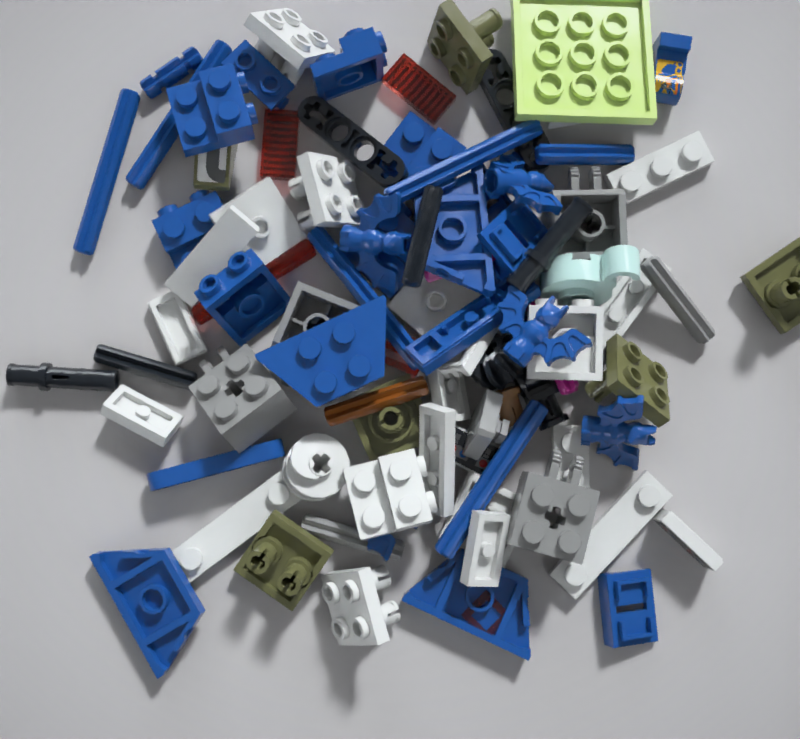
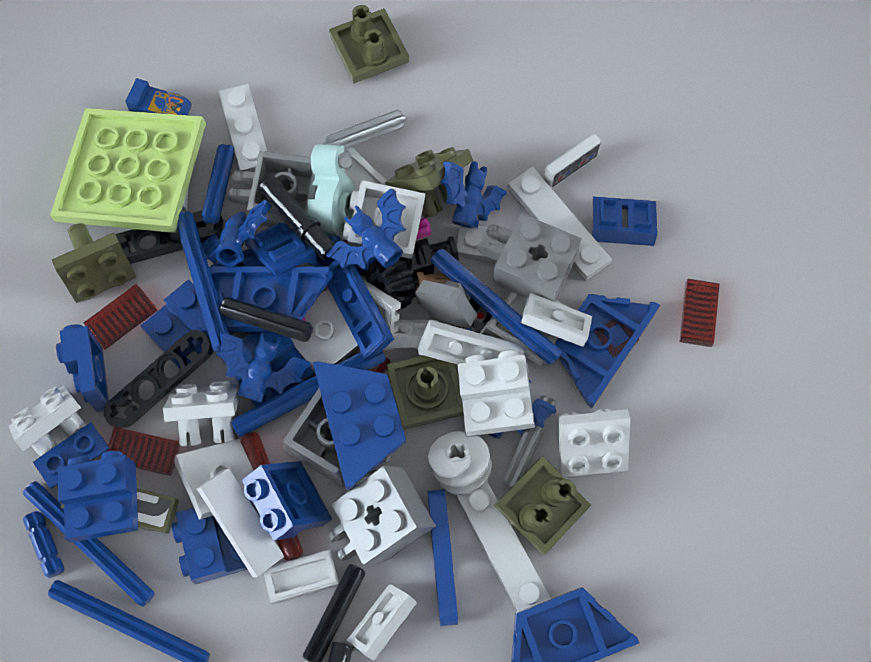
camera: 80 degrees left, 15 degrees down
(376, 400) = (408, 394): dark orange axle -> none
(531, 705) = (699, 312): none -> clear red tile

